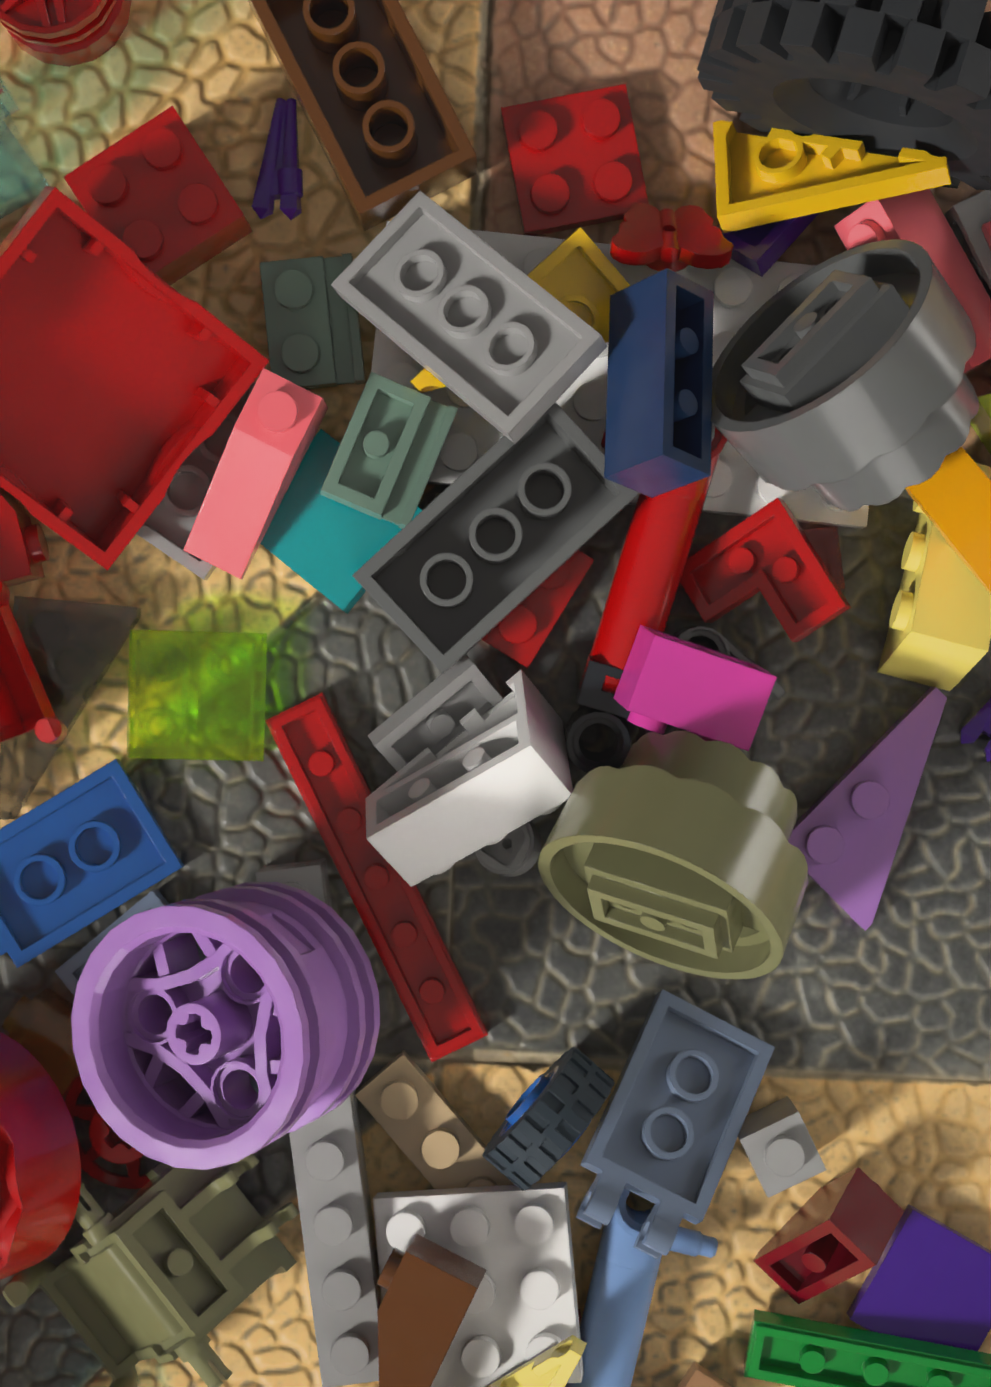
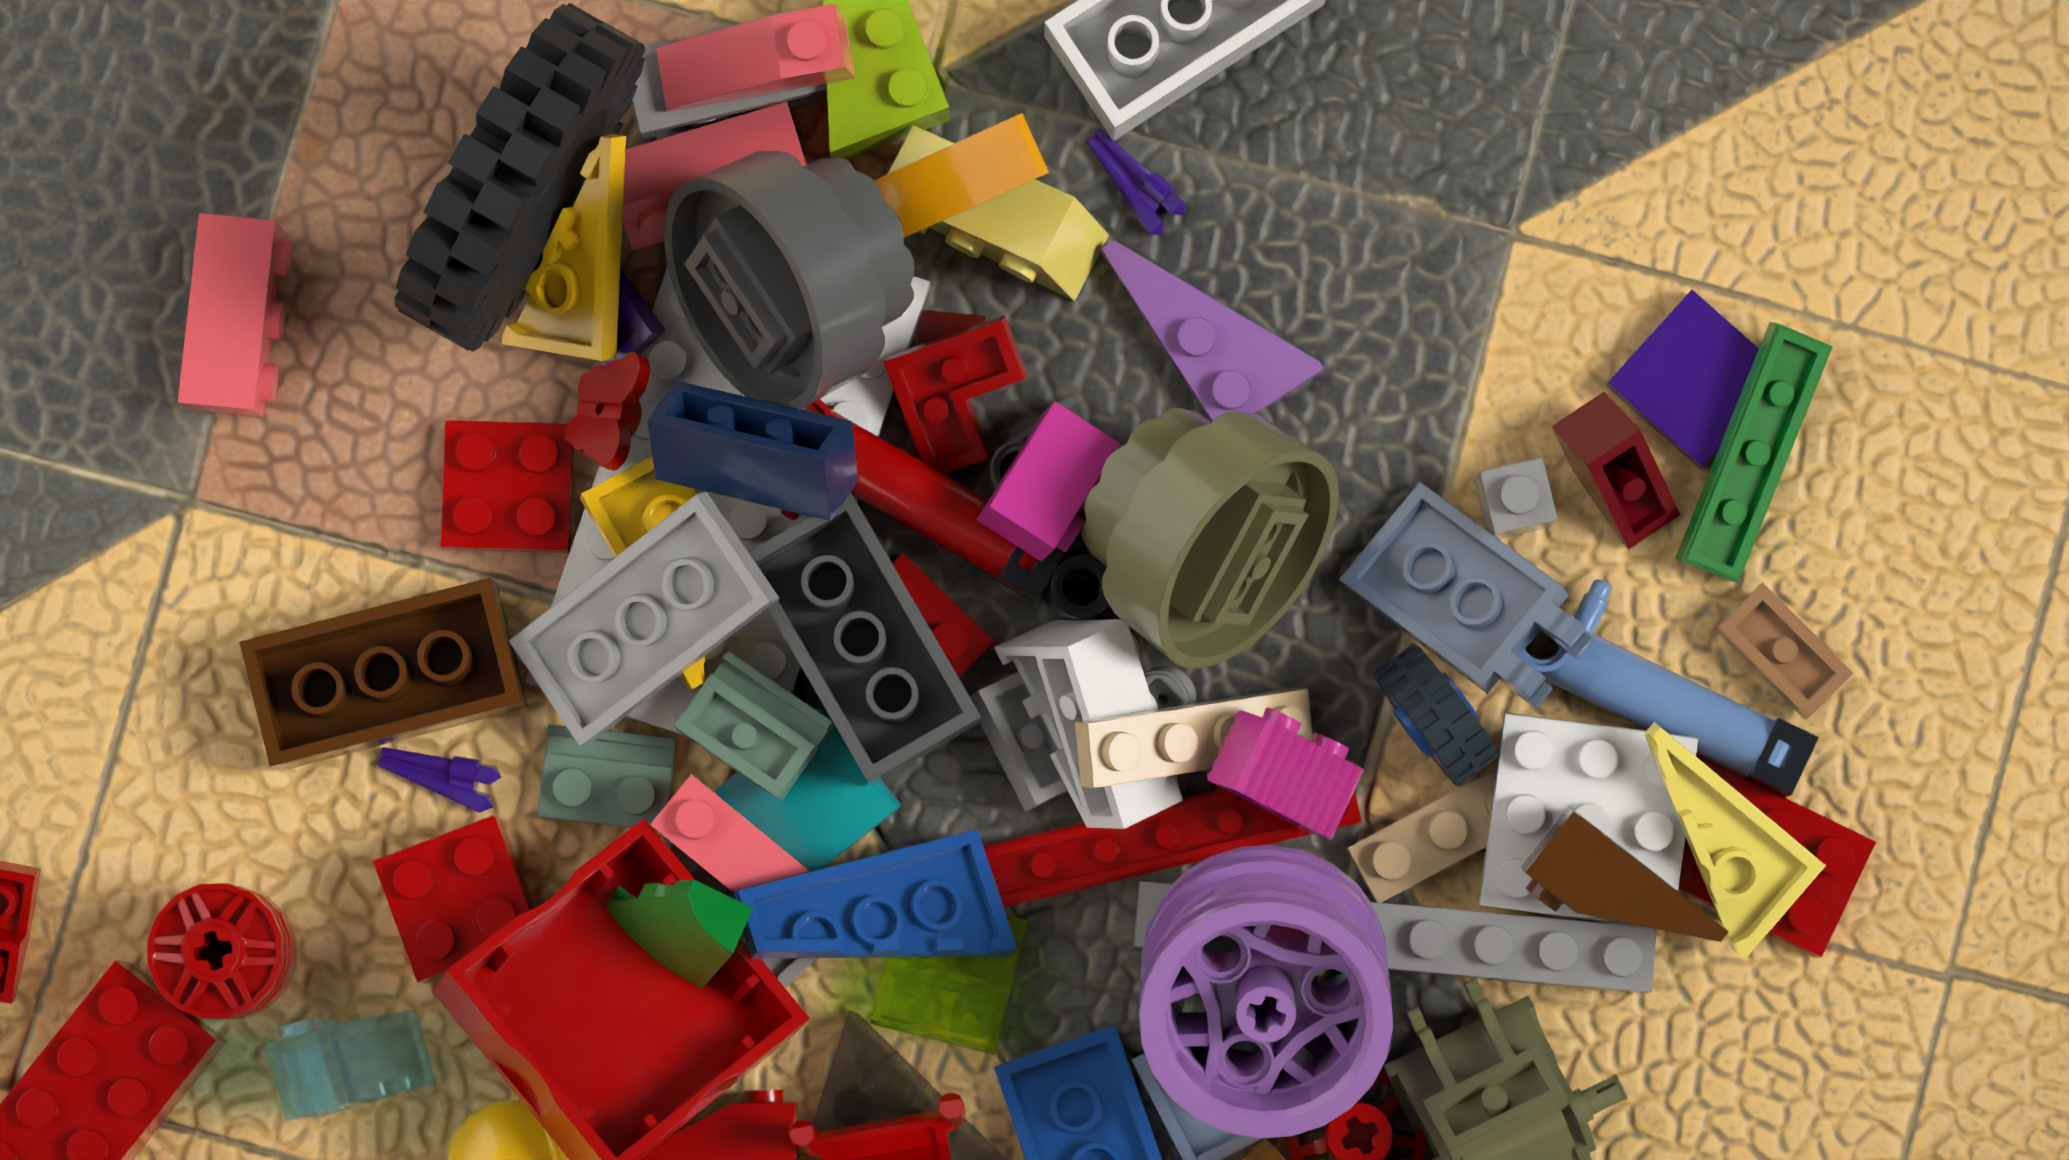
camera: 80 degrees left, 5 degrees down
(170, 422) = (682, 925): none -> green slope
(242, 627) = (891, 904): none -> blue wing
(457, 985) = (1285, 772): none -> dark pink brick
(471, 884) = (1172, 738): none -> tan plate

